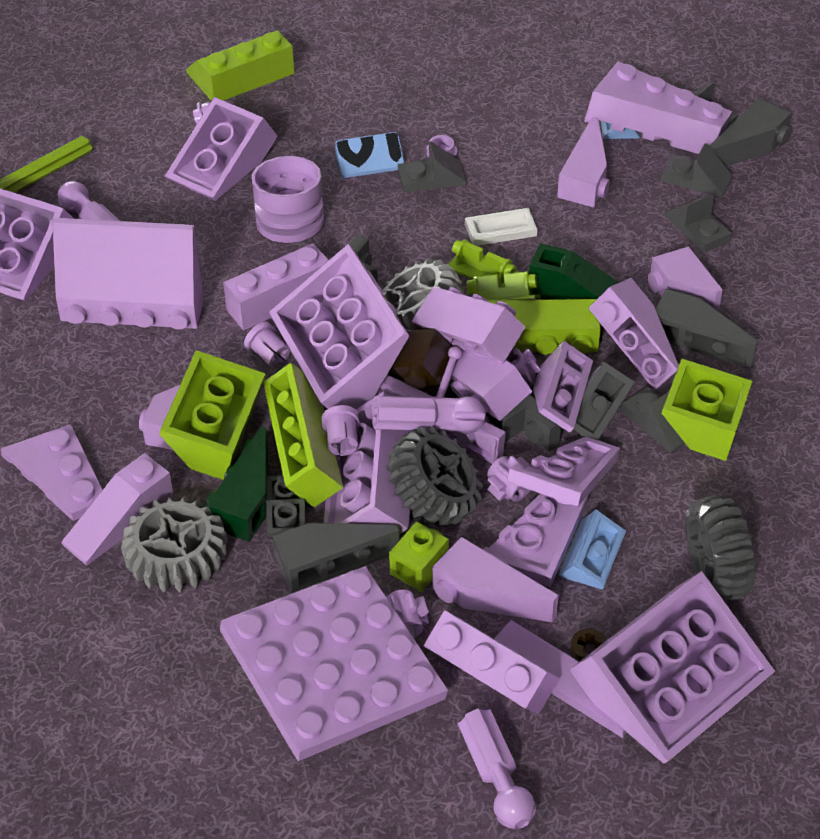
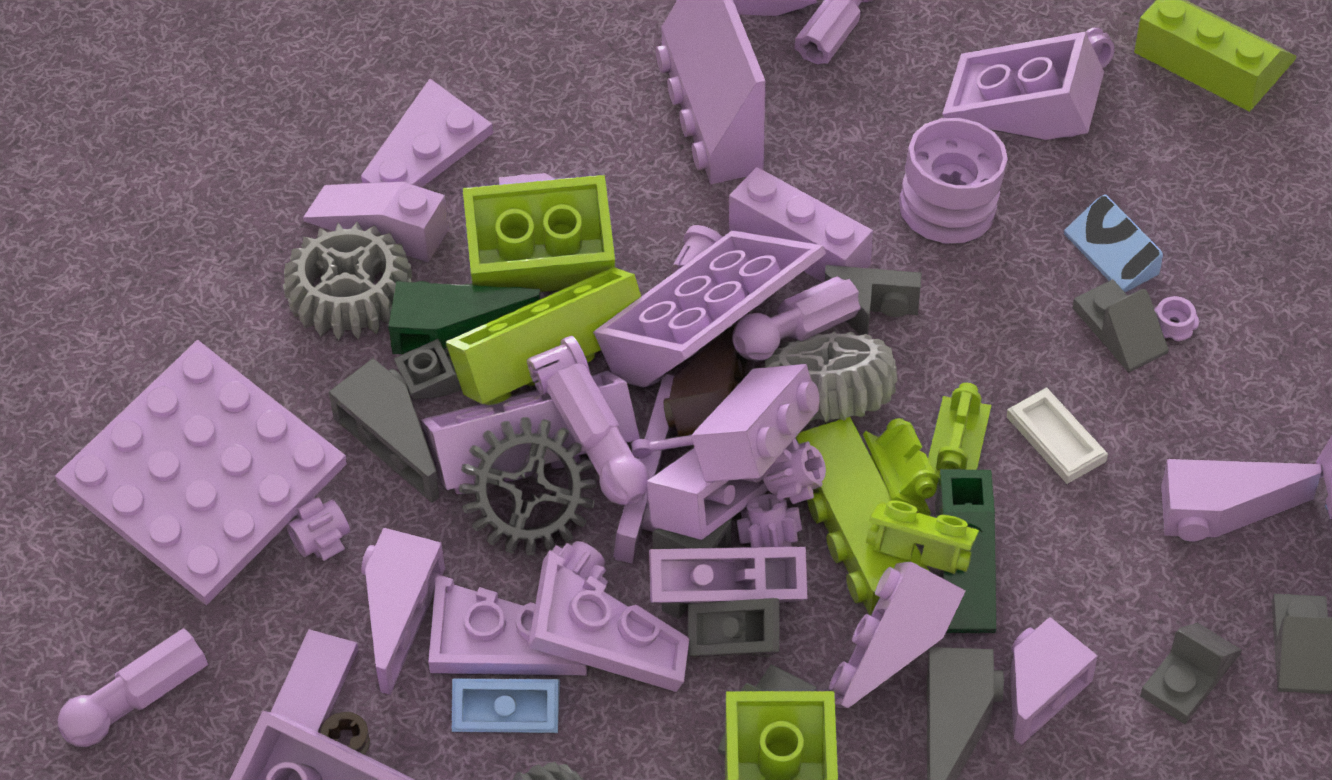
camera: 70 degrees right, 5 degrees up
(416, 555) = (416, 511): lime brick -> none
(491, 662) = (268, 633): lavender brick -> none
(585, 278) = (942, 536): none -> lime hinge

